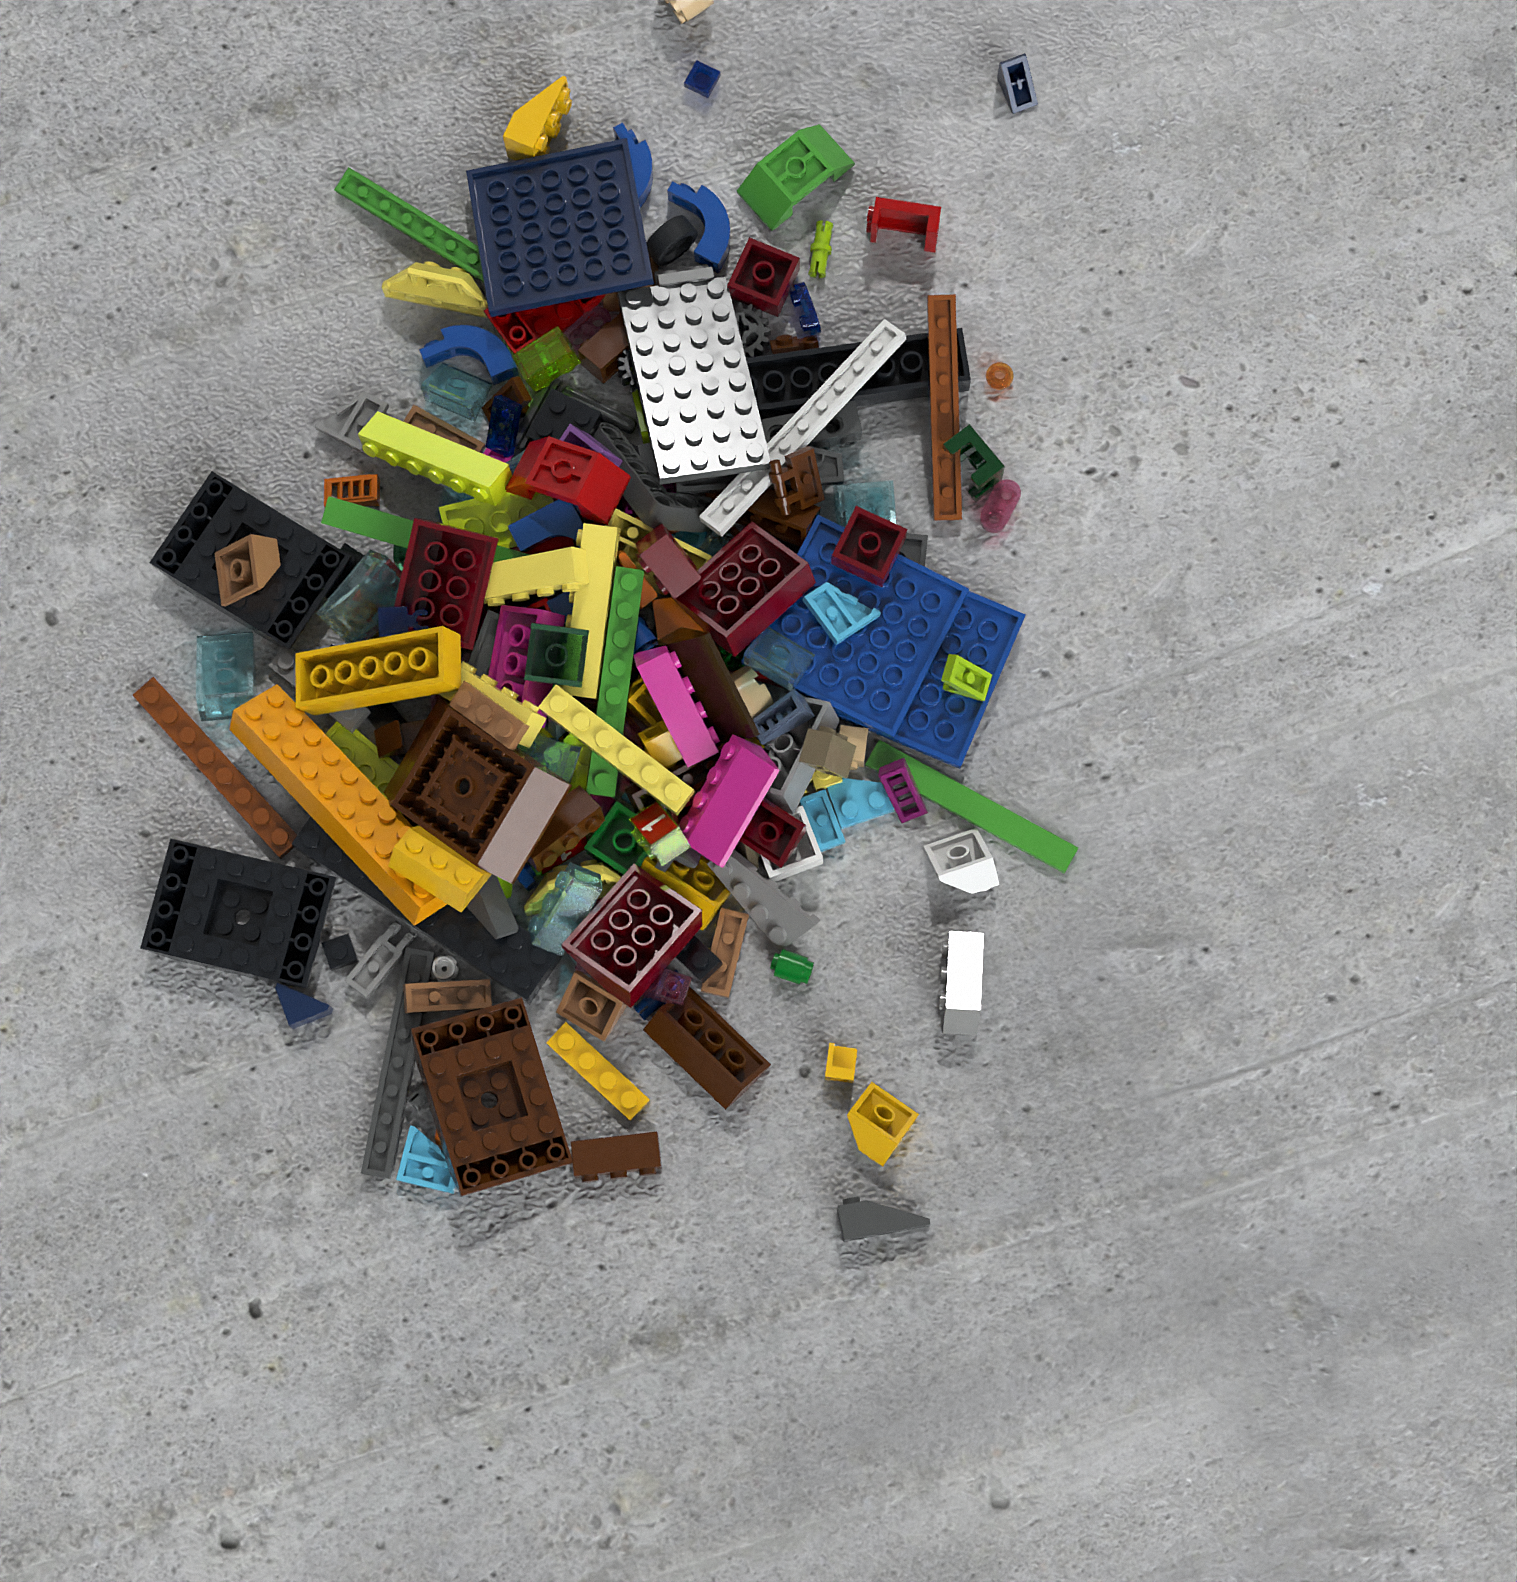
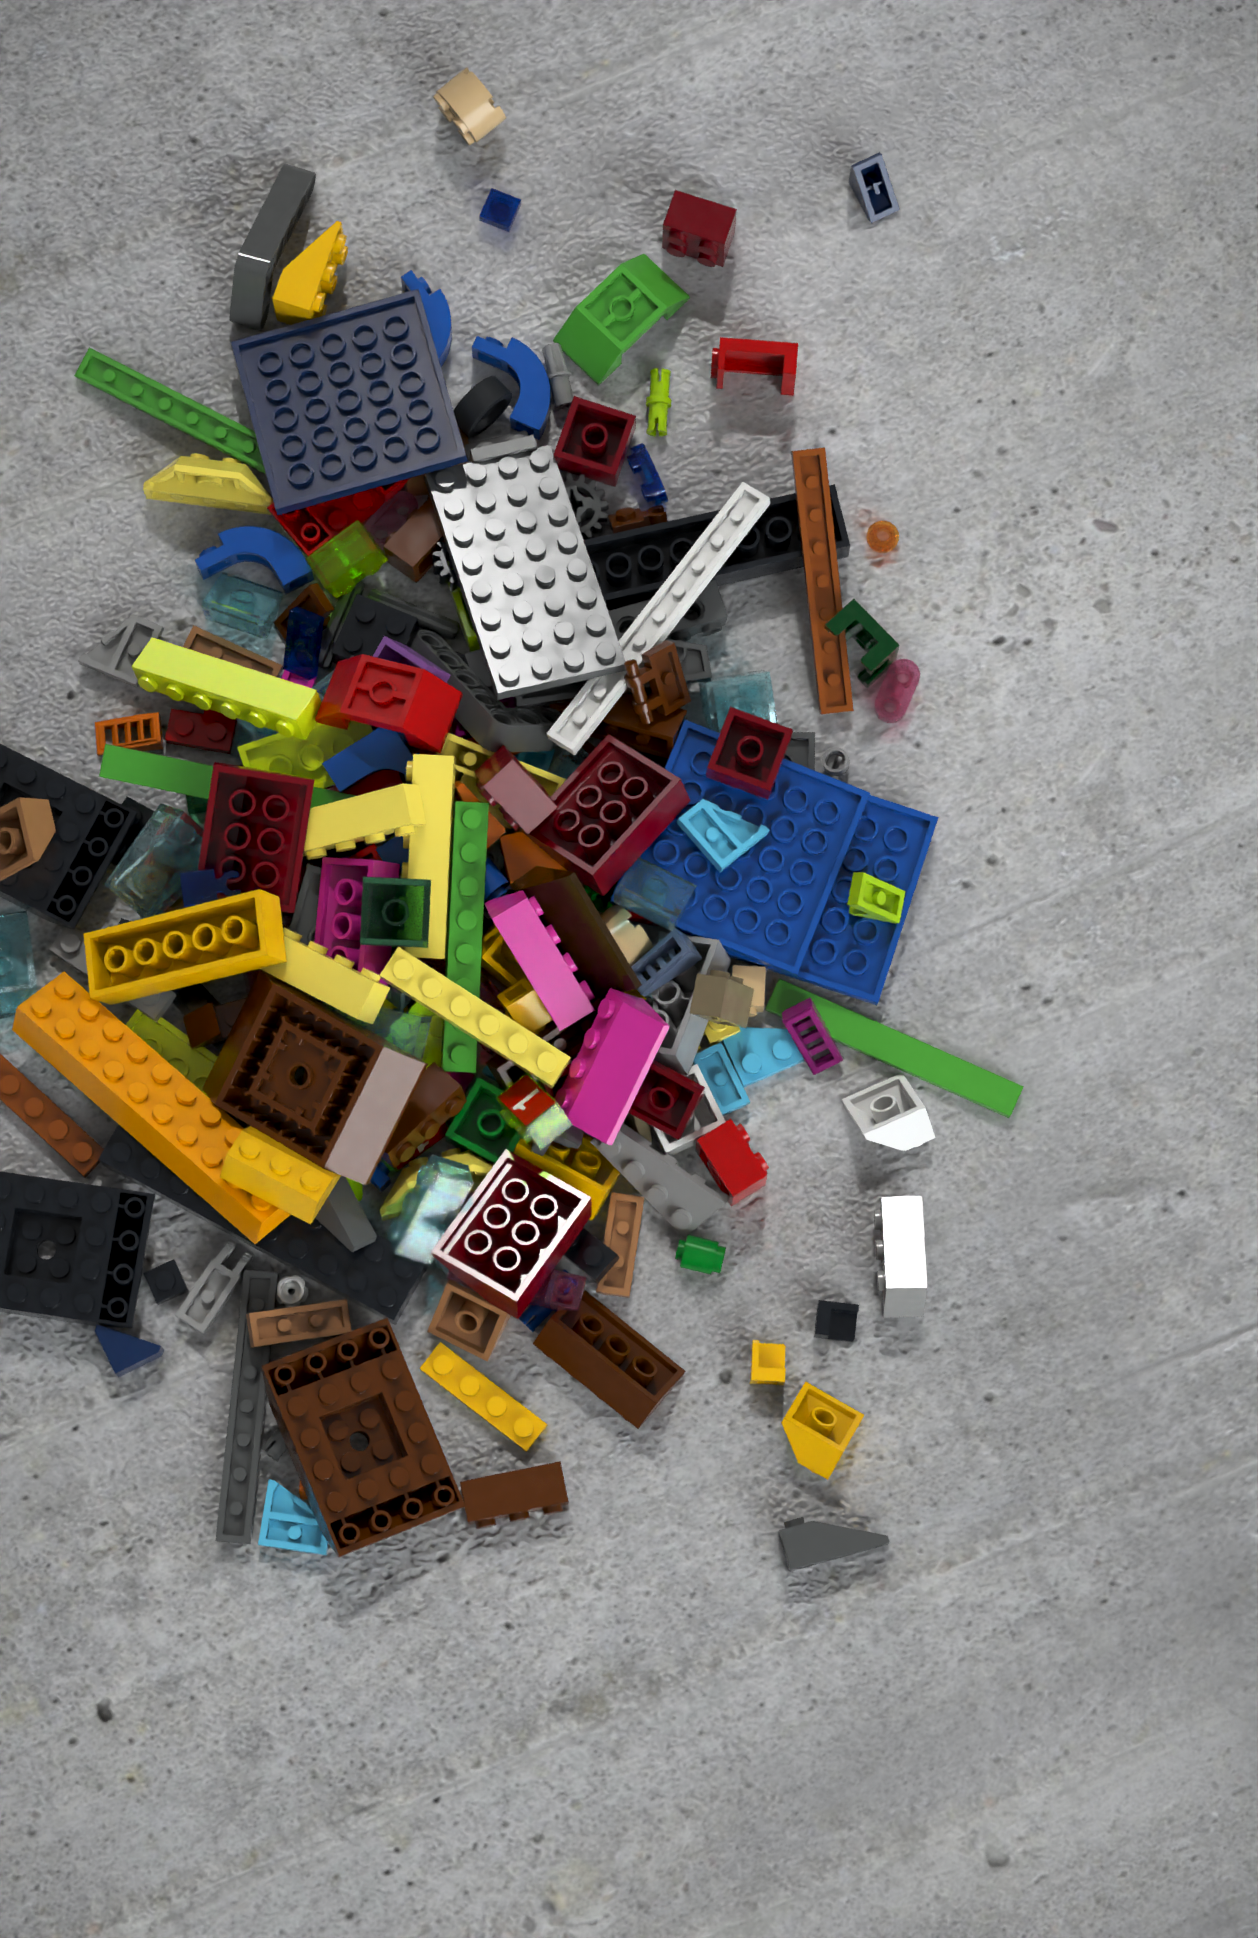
camera: 10 degrees left, 0 degrees up
(411, 493) = (201, 731): none -> red plate
(489, 715) = (323, 990): medium nougat plate -> none
(502, 91) = (266, 244): none -> dark grey beam
(738, 220) = (558, 375): none -> light grey axle
(825, 891) = (731, 1161): none -> red brick
(866, 106) = (698, 229): none -> dark red brick
(902, 1032) = (836, 1321): none -> black panel
(939, 558) = (830, 759): none -> light grey hinge

